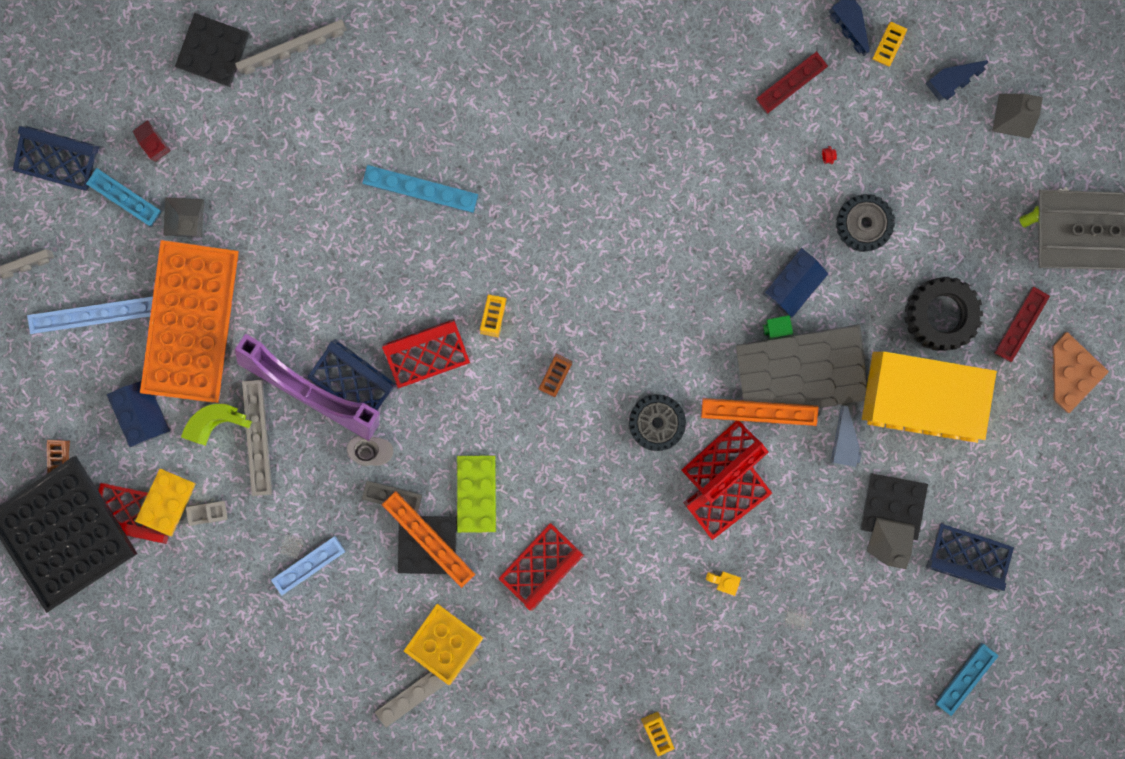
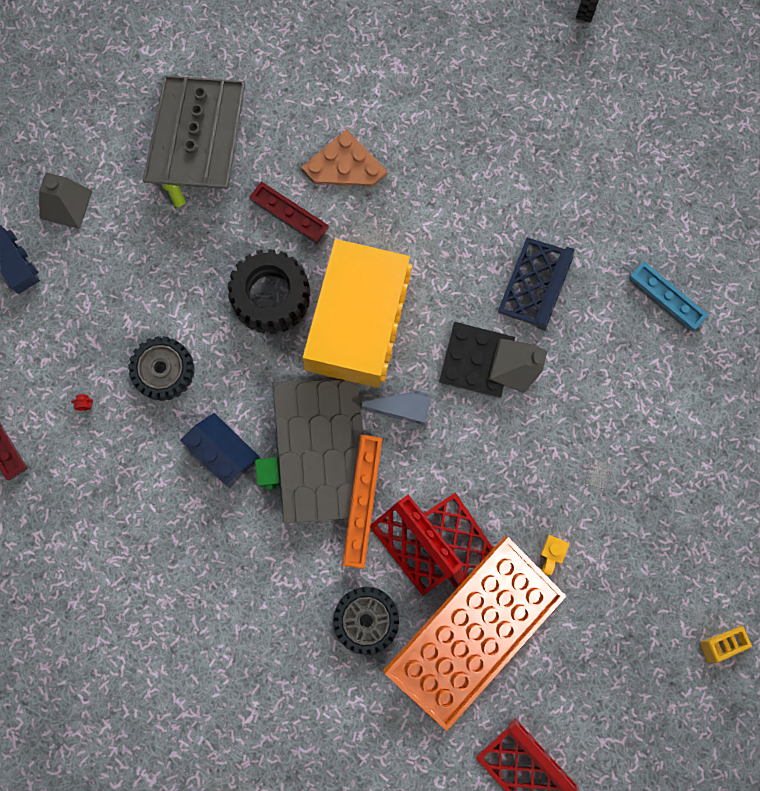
camera: 90 degrees left, 10 degrees down
(562, 360) = (282, 733): dark orange slope -> none
(654, 517) = (474, 633): none -> orange plate

